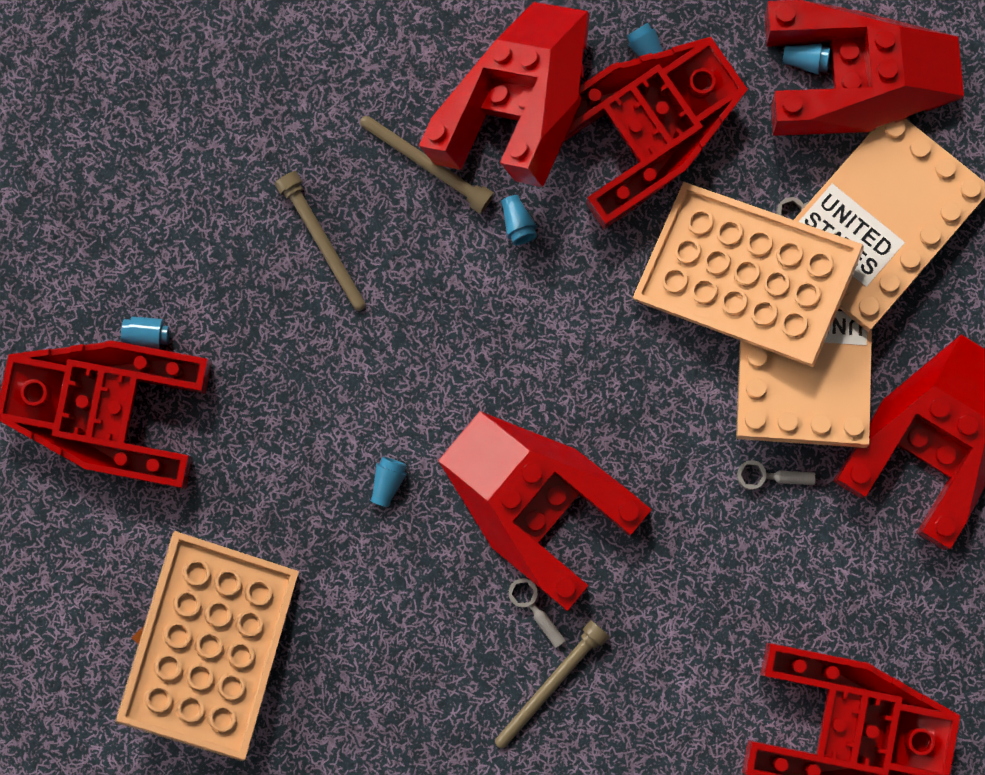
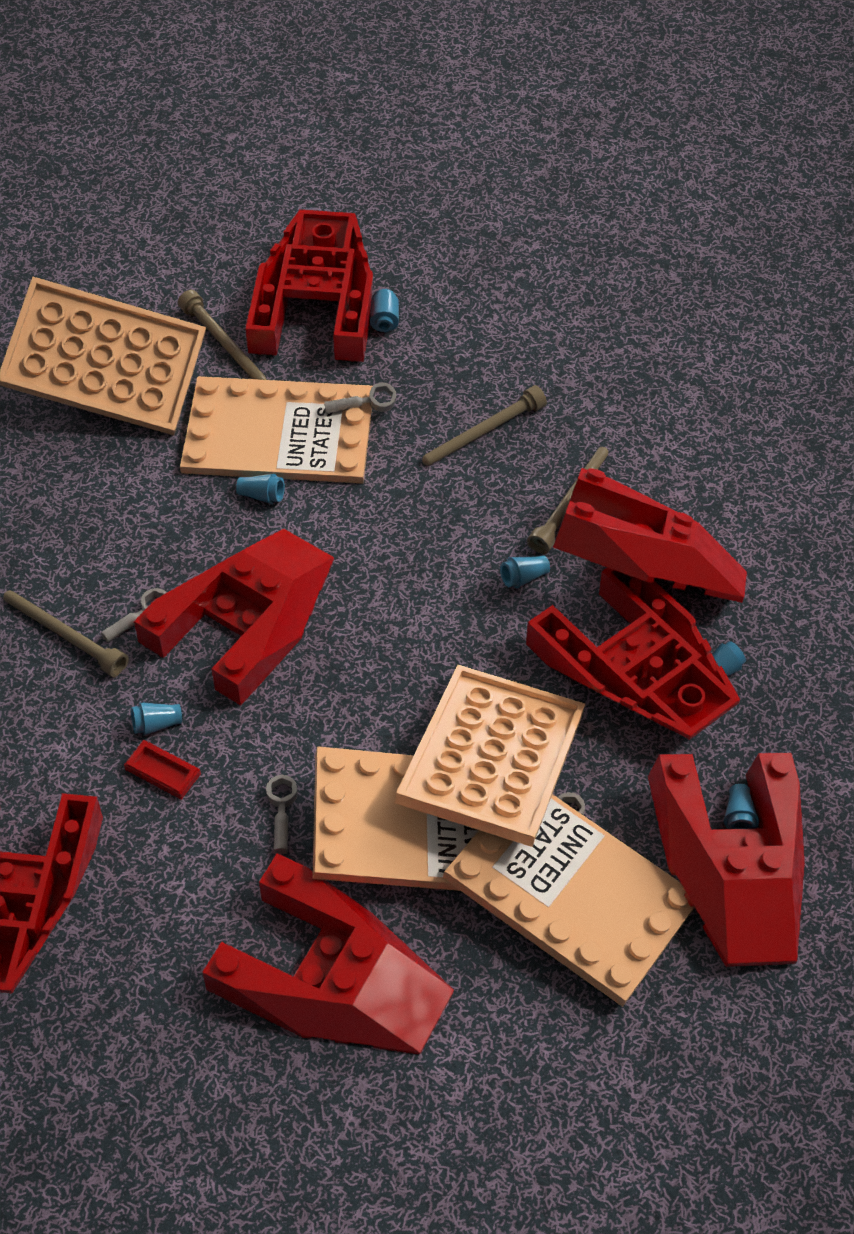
camera: 85 degrees right, 30 degrees down
(111, 548) = (192, 304): none -> dark tan piece
(282, 373) = (356, 402): none -> light grey piece
(301, 460) = (276, 430): none -> light nougat plate
(664, 594) = (154, 717): none -> dark azure cone
(718, 587) = (162, 769): none -> red tile

